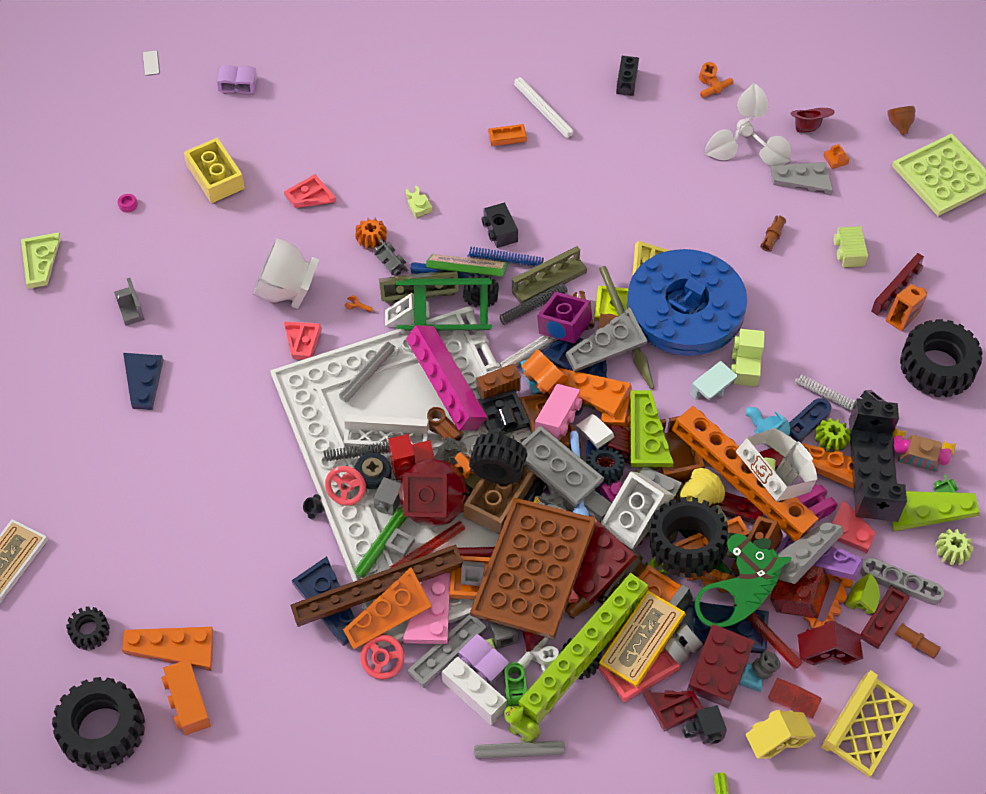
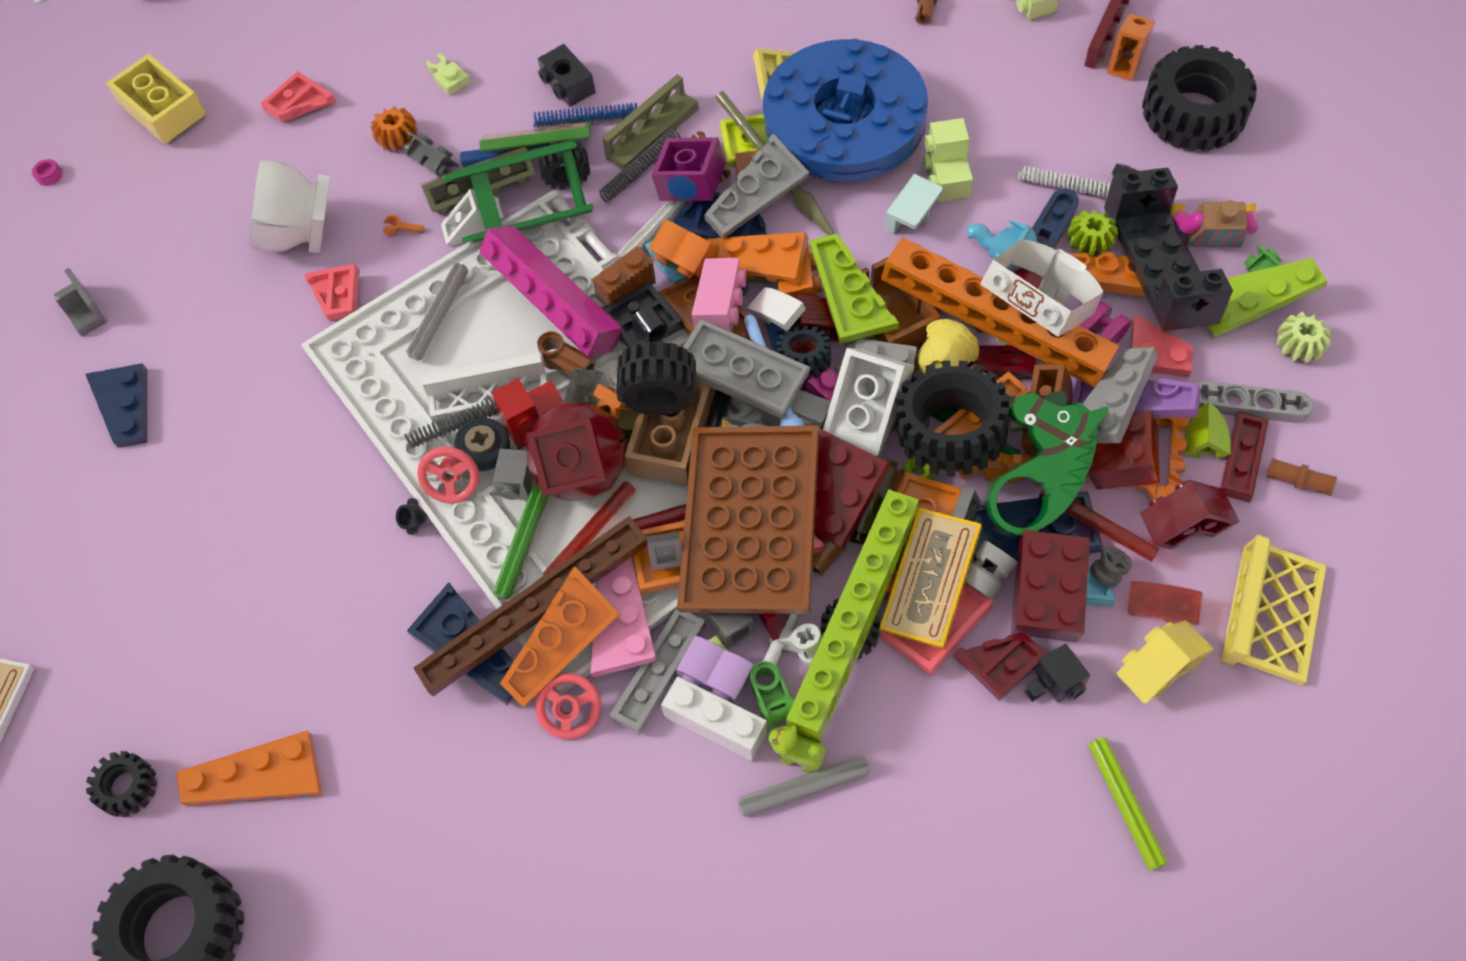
camera: 10 degrees left, 5 degrees up
(185, 697) = (293, 848): orange brick -> none
(399, 542) = (548, 535): light grey plate -> none

